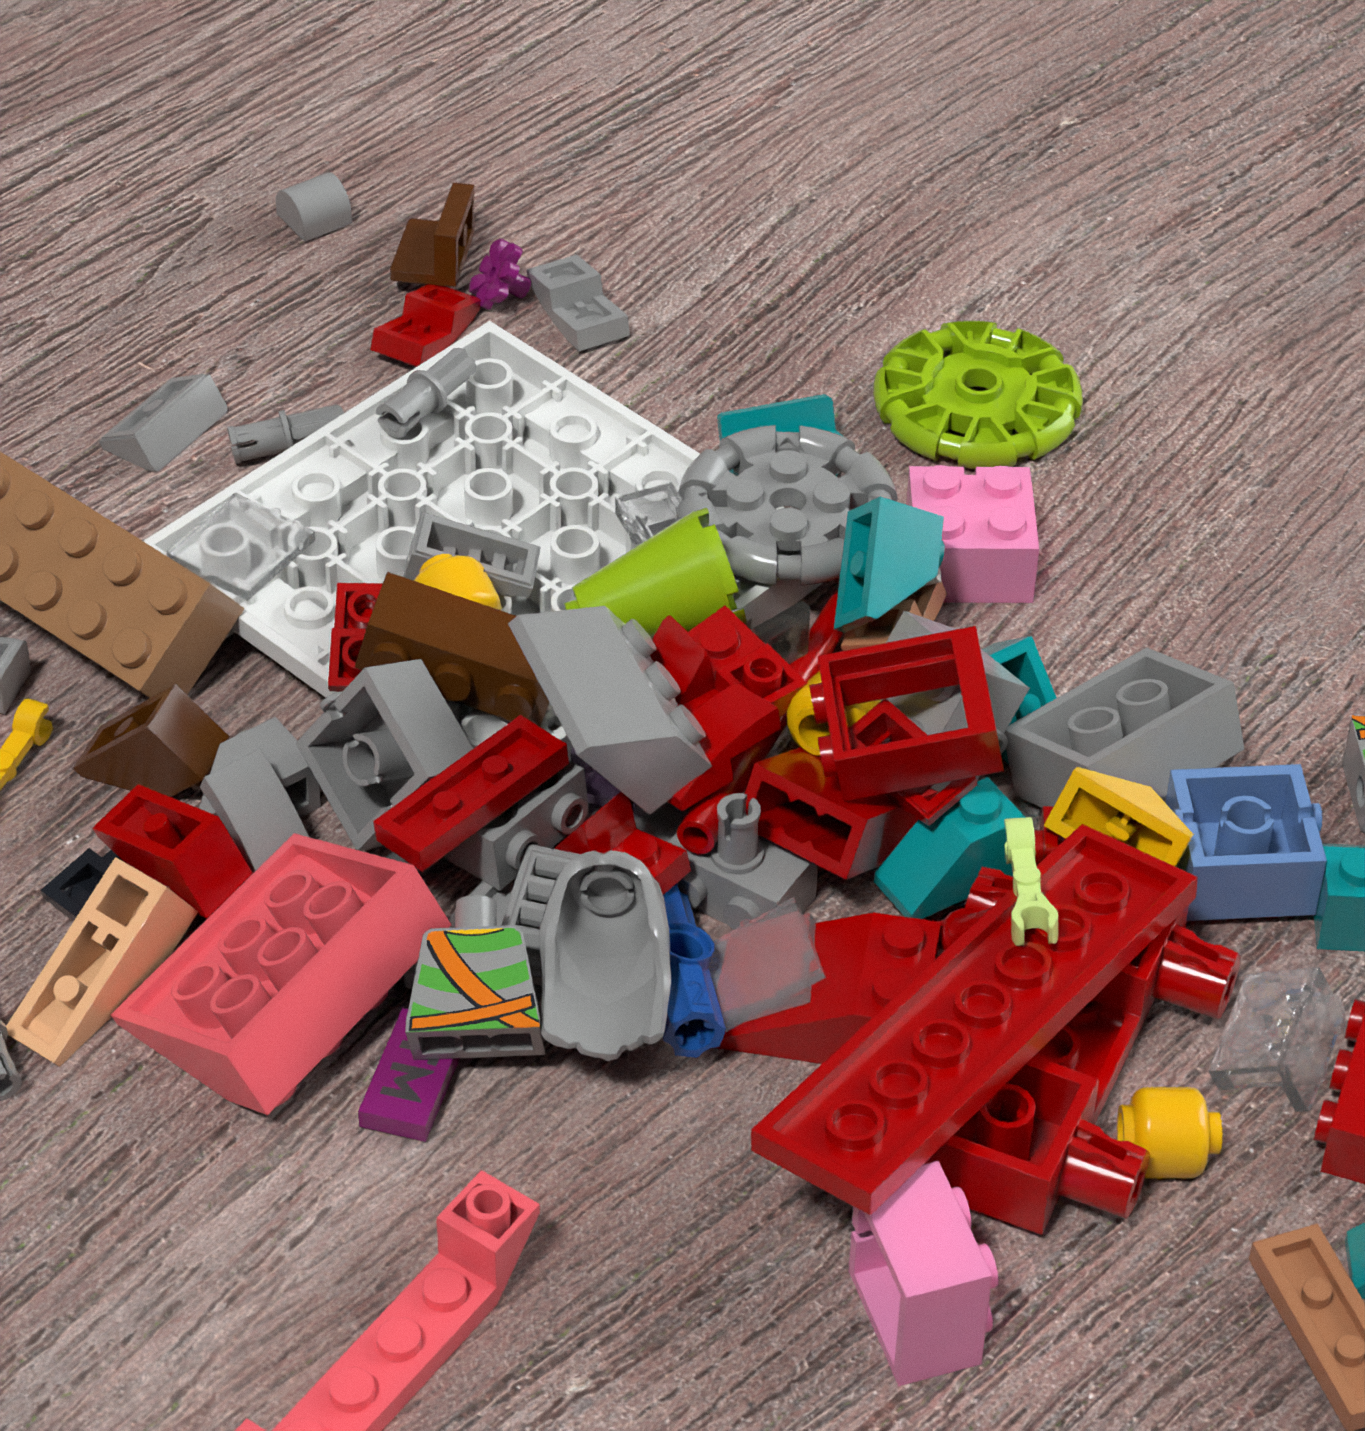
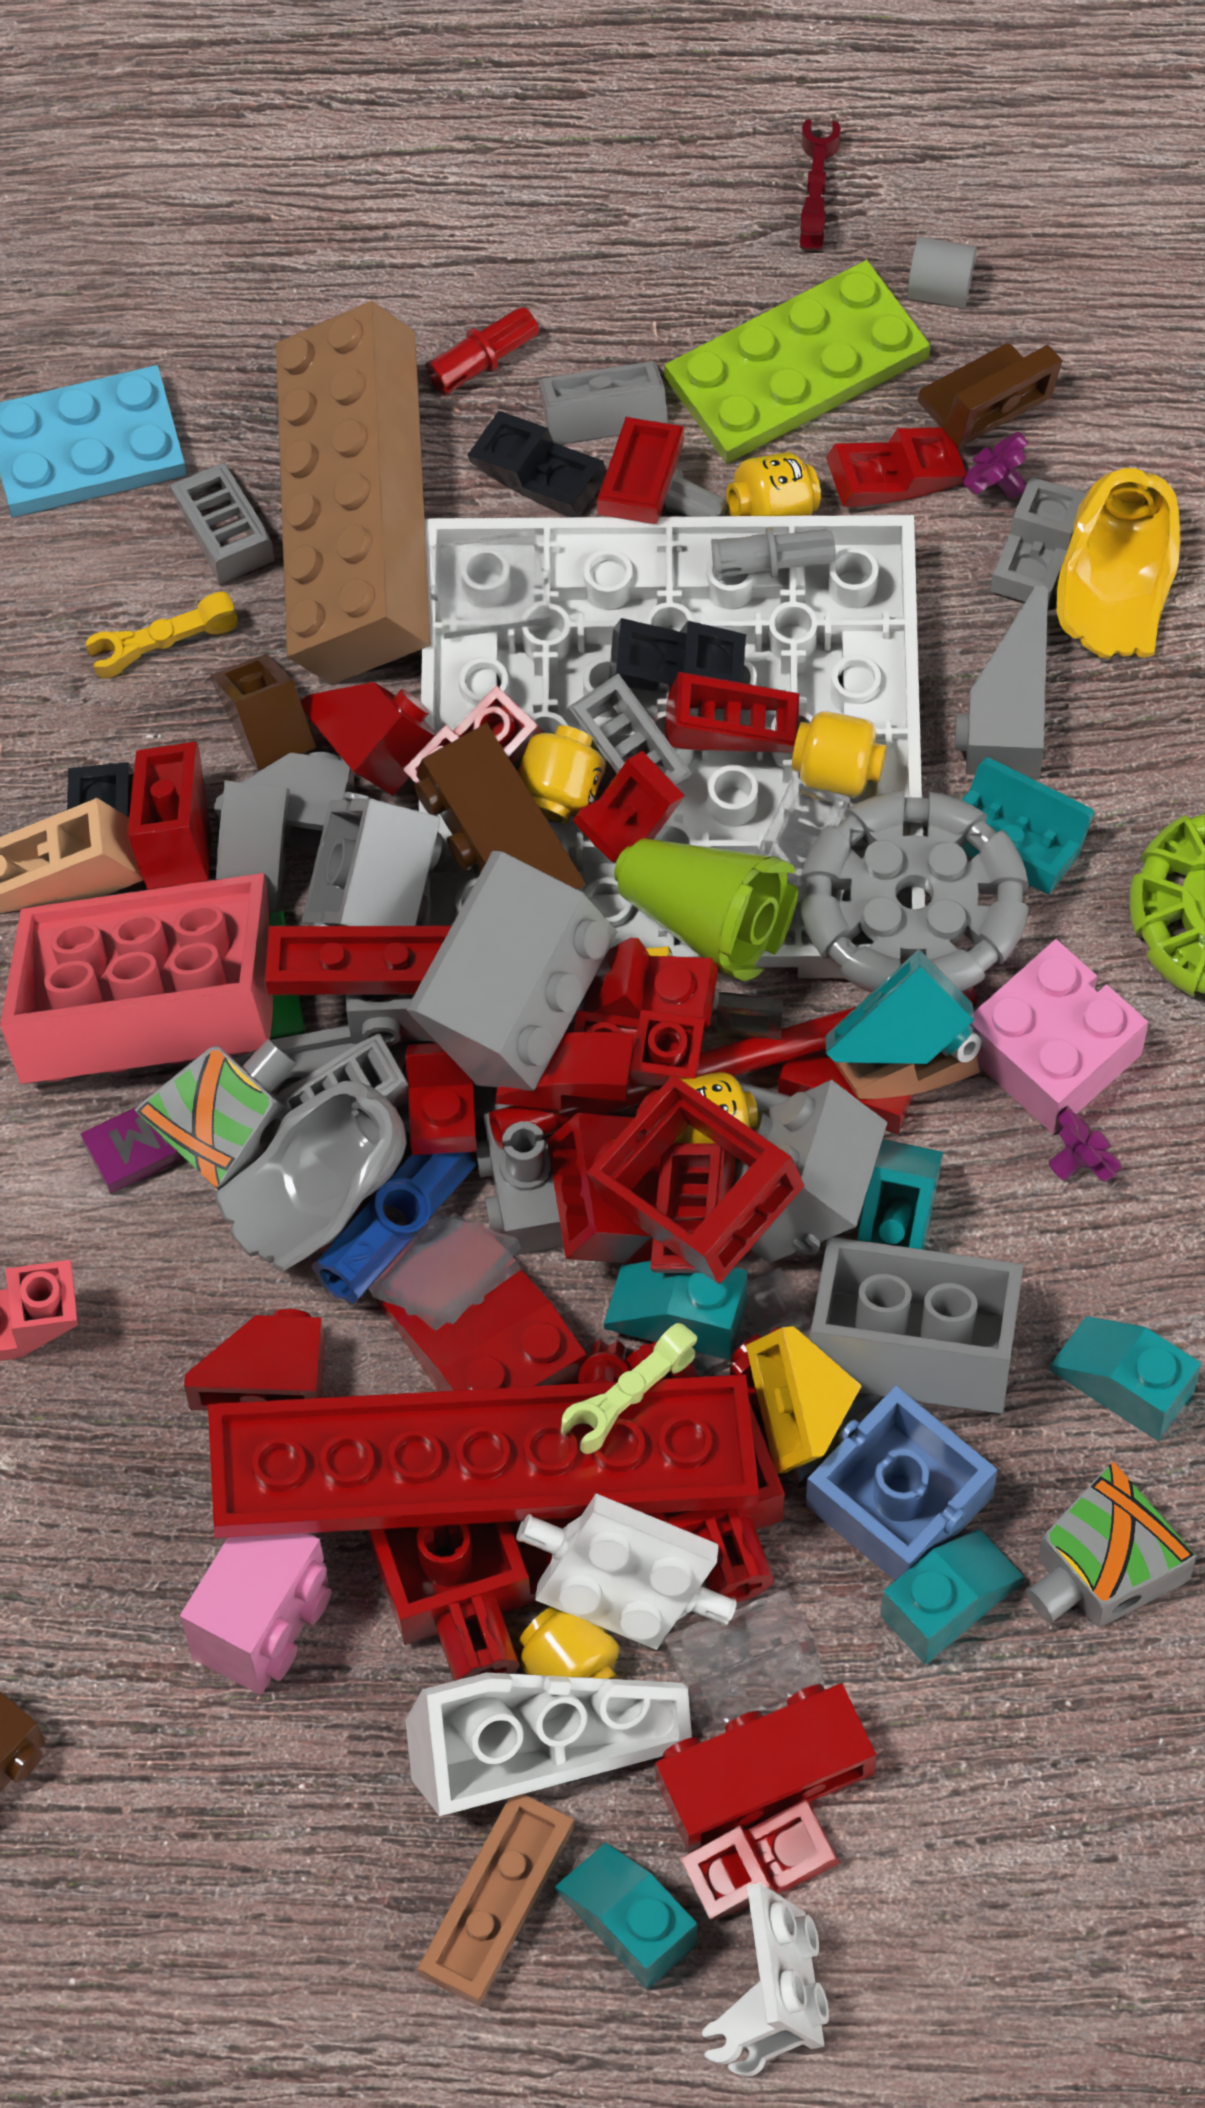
camera: 50 degrees right, 20 degrees up
(37, 442) = (481, 350): none -> red axle
(146, 488) = (535, 467): none -> black slope
(180, 230) = (813, 213): none -> dark red piece
(261, 418) = (640, 470): none -> red tile
(266, 679) = (372, 730): none -> red slope
(277, 315) = (796, 361): none -> lime plate
(361, 373) = (774, 487): none -> yellow head
(449, 488) = (653, 655): none -> black slope
(517, 498) = (729, 735): none -> red slope
(535, 573) = (630, 808): none -> red bracket
(630, 459) = (838, 753): none -> yellow head
(651, 264) = (1120, 564): none -> yellow hair
(680, 379) = (1009, 696): none -> light grey slope
(709, 1138) = (262, 1362): none -> red slope
(1072, 583) = (1083, 1150): none -> magenta plant
(1160, 1015) = (626, 1571): none -> white plate
(1220, 1194) = (531, 1732): none -> white wedge
(1286, 671) = (1129, 1372): none -> teal slope

